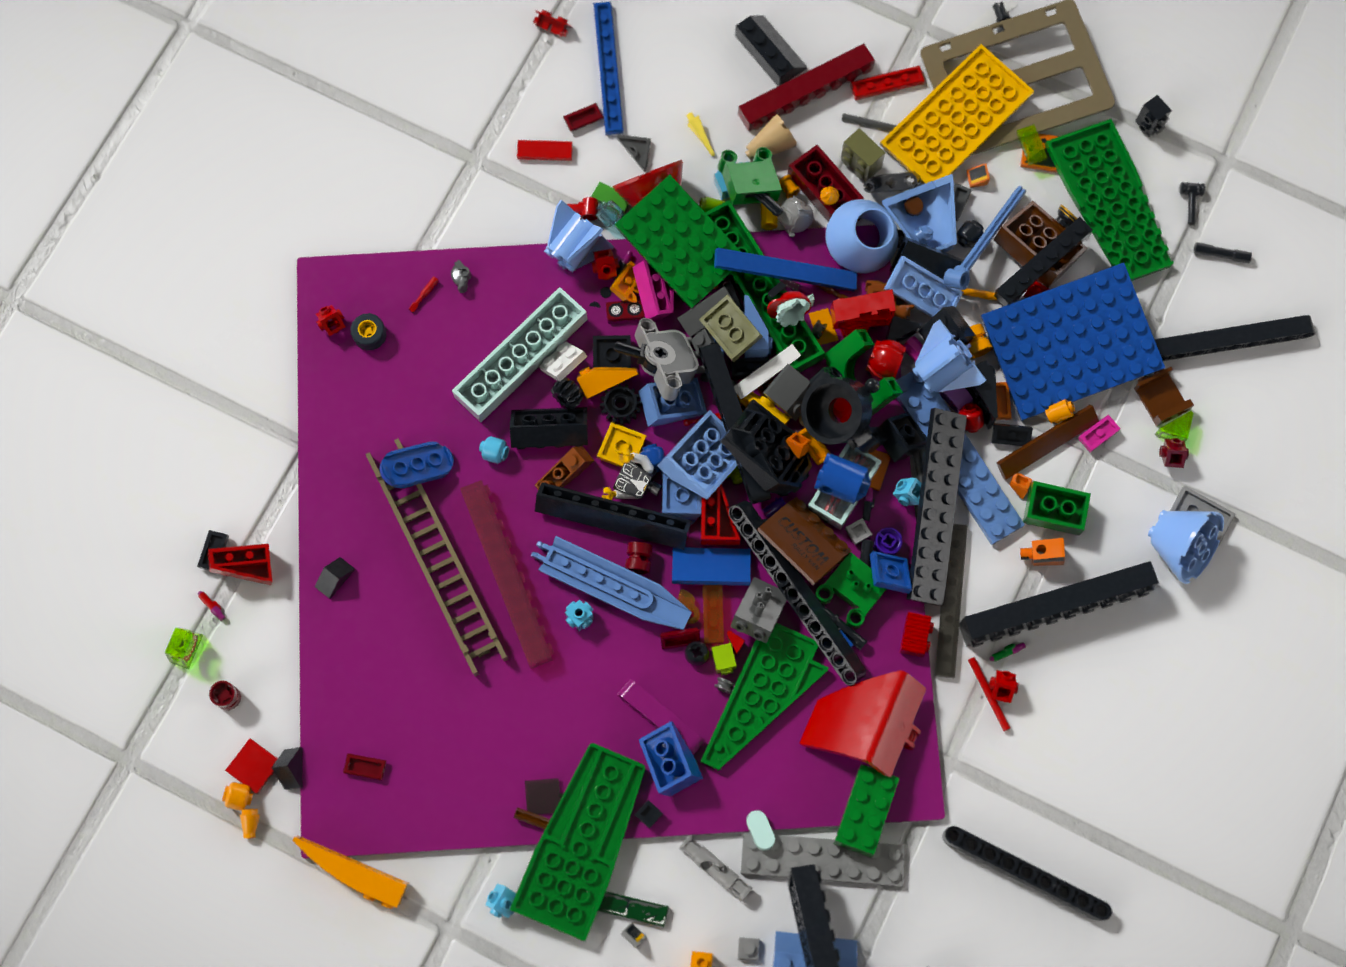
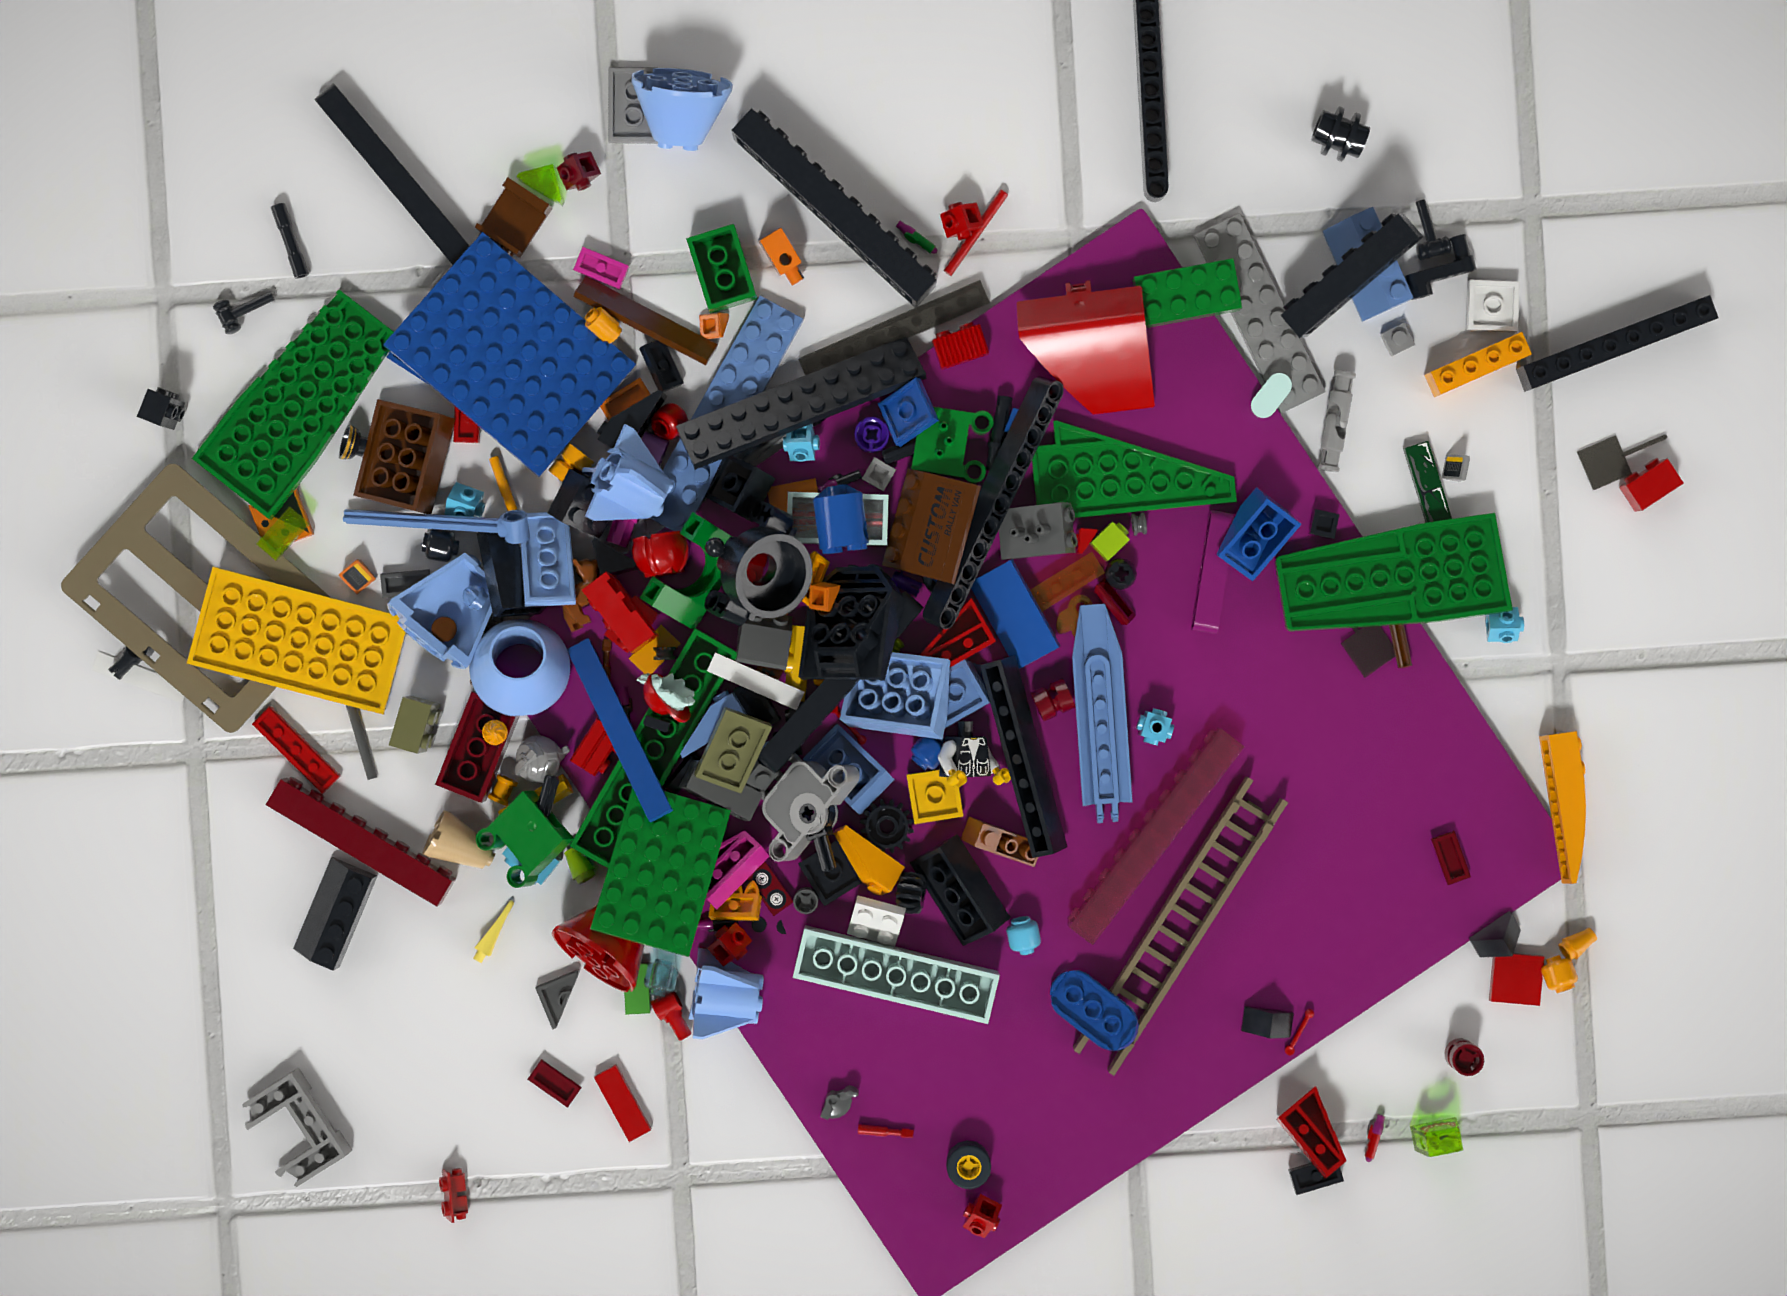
camera: 120 degrees left, 15 degrees up
(306, 581) = (1289, 1049): none -> red hinge
(602, 323) = (803, 903): none -> dark grey wheel
(608, 68) = (471, 1092): blue tile -> none
(780, 248) = (594, 750): none -> red brick
(881, 185) = (435, 686): black beam -> none
(989, 263) = (465, 501): none -> medium azure brick
(1057, 249) = (432, 438): black arch -> none

